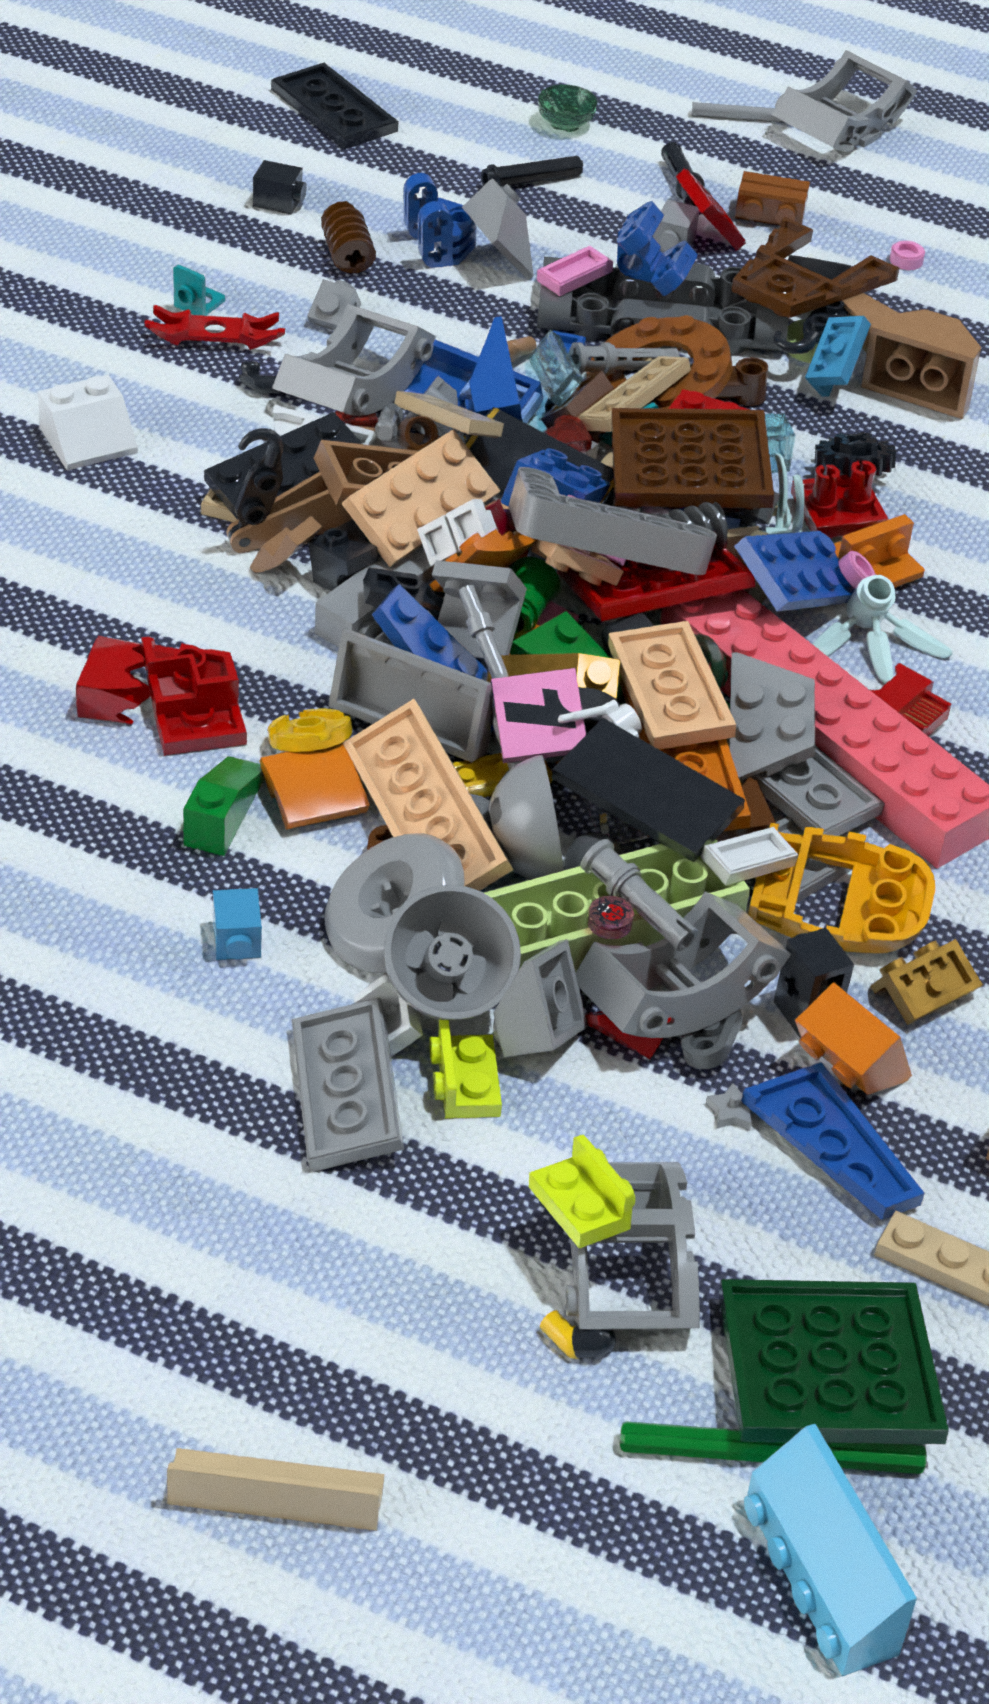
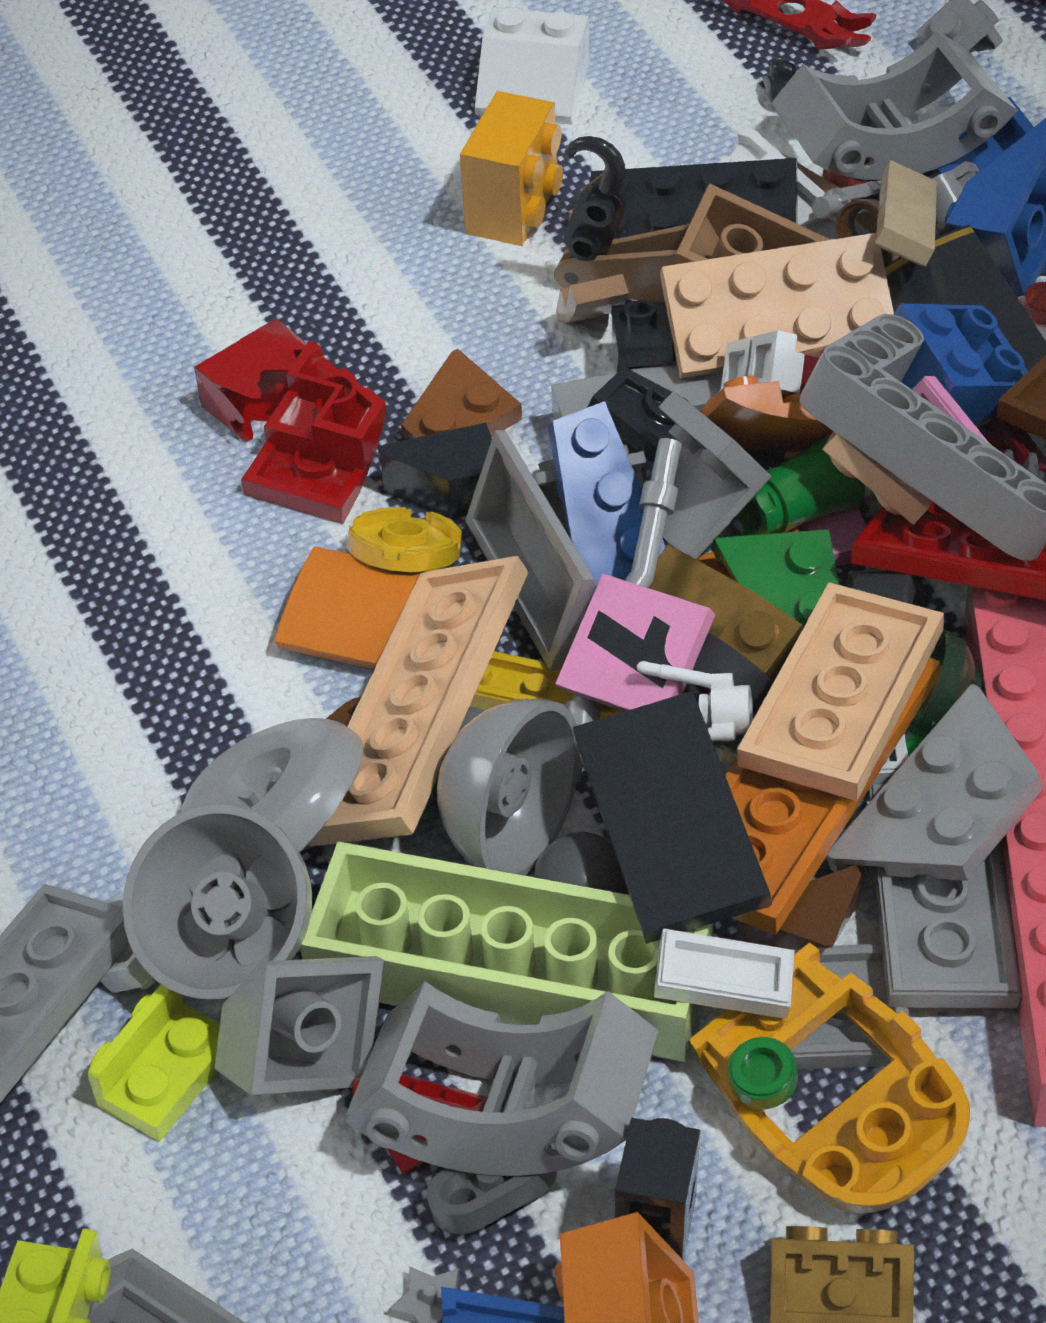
camera: 45 degrees right, 5 degrees up
(154, 487) = (510, 168): none -> light orange brick
(220, 804) = (227, 579): green slope -> none
(237, 924) = (95, 736): dark azure brick -> none
(255, 647) = (461, 398): none -> dark orange wing
(291, 682) = (436, 469): none -> black slope
(610, 917) = (461, 960): clear pink tile -> none
(626, 882) = (517, 924): light grey pin -> none
(807, 898) = (763, 1072): none -> green tile

